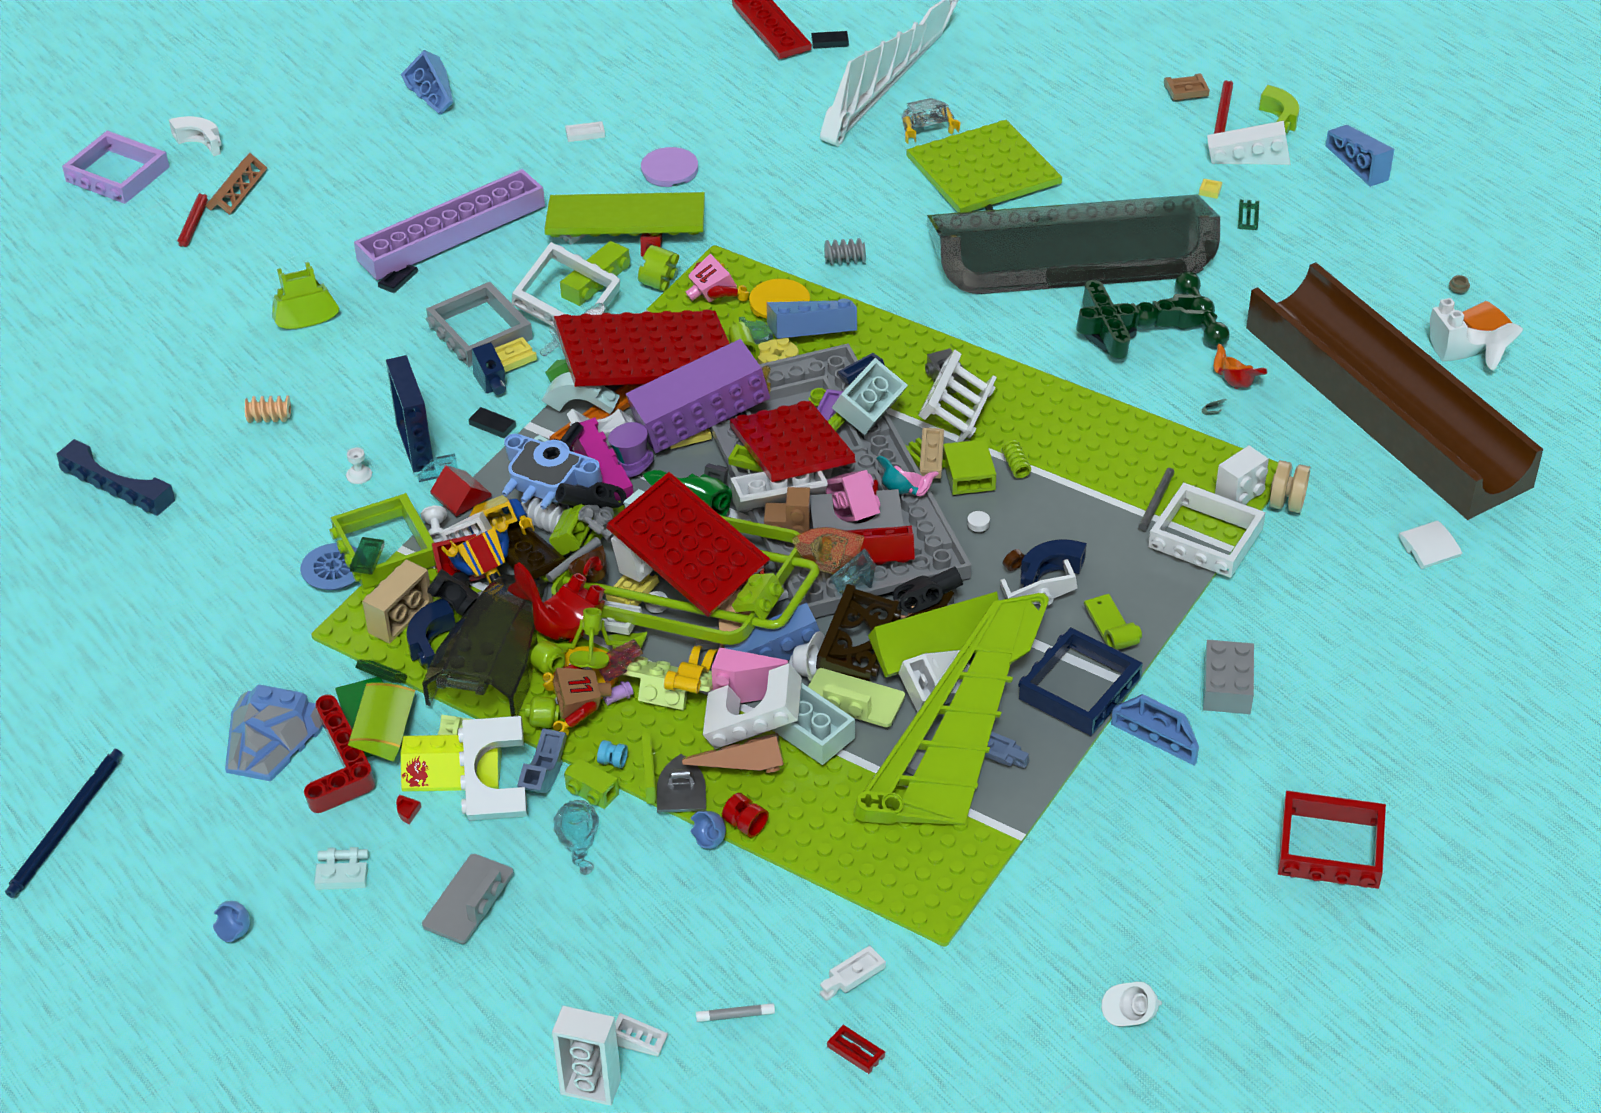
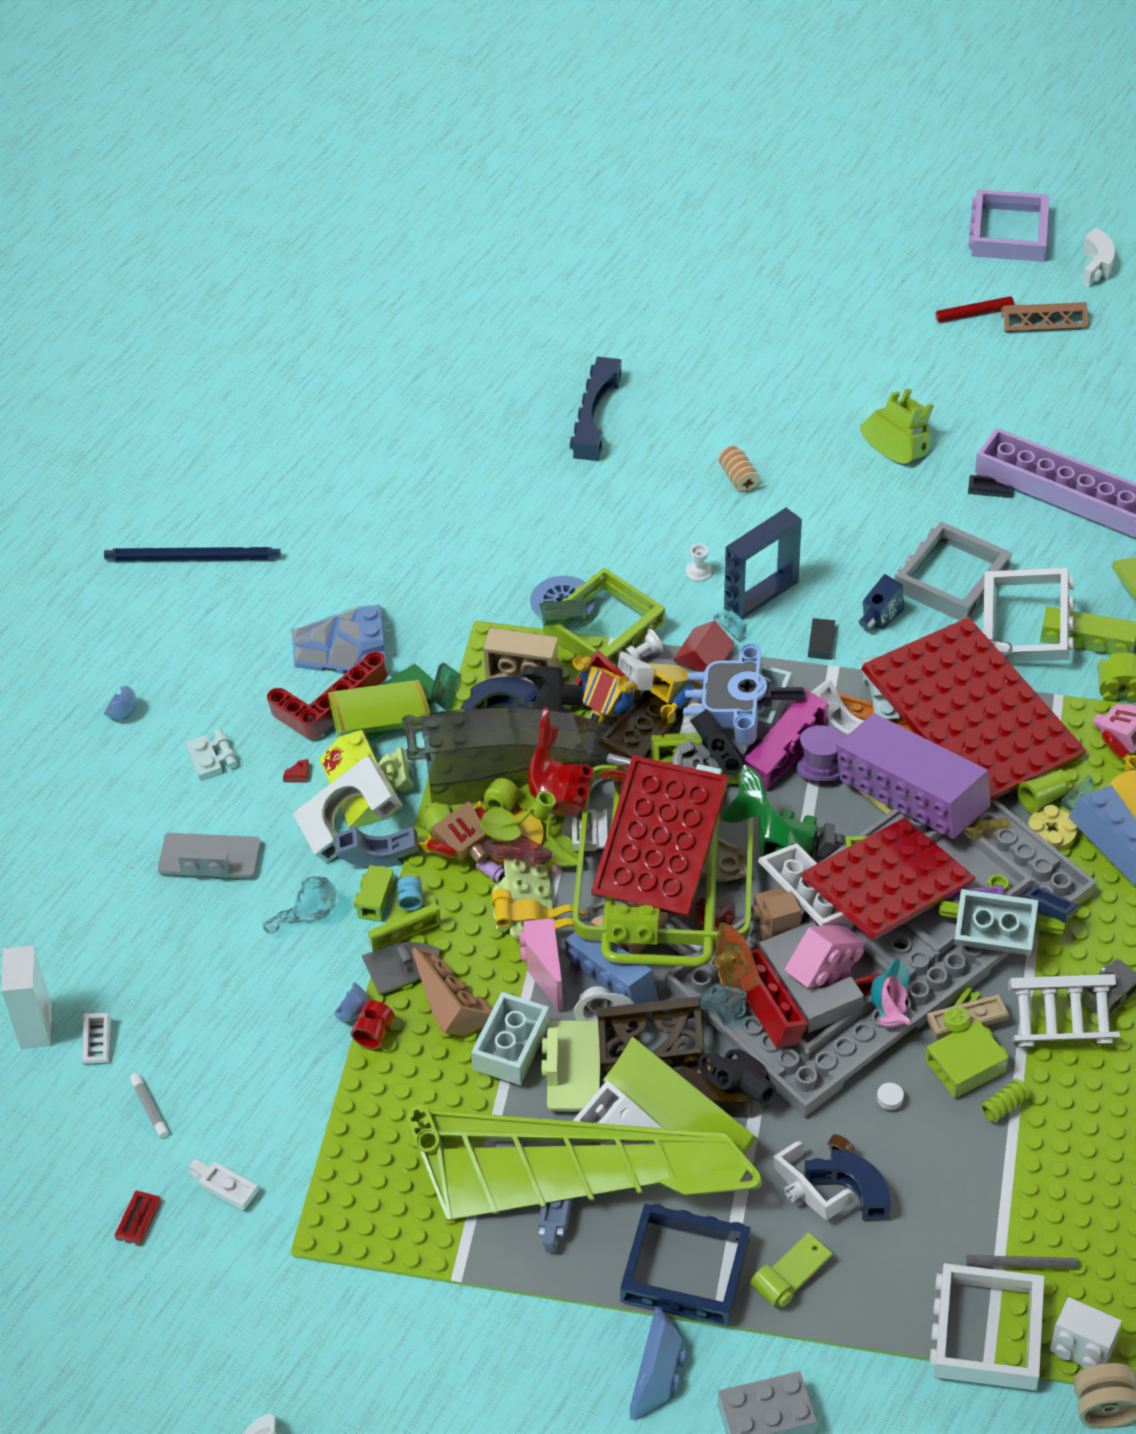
camera: 70 degrees right, 5 degrees up
(515, 354) = (923, 614): light yellow plate -> none
(777, 708) = (497, 977): white arch -> none
(939, 453) = (956, 1019): none -> lime tile

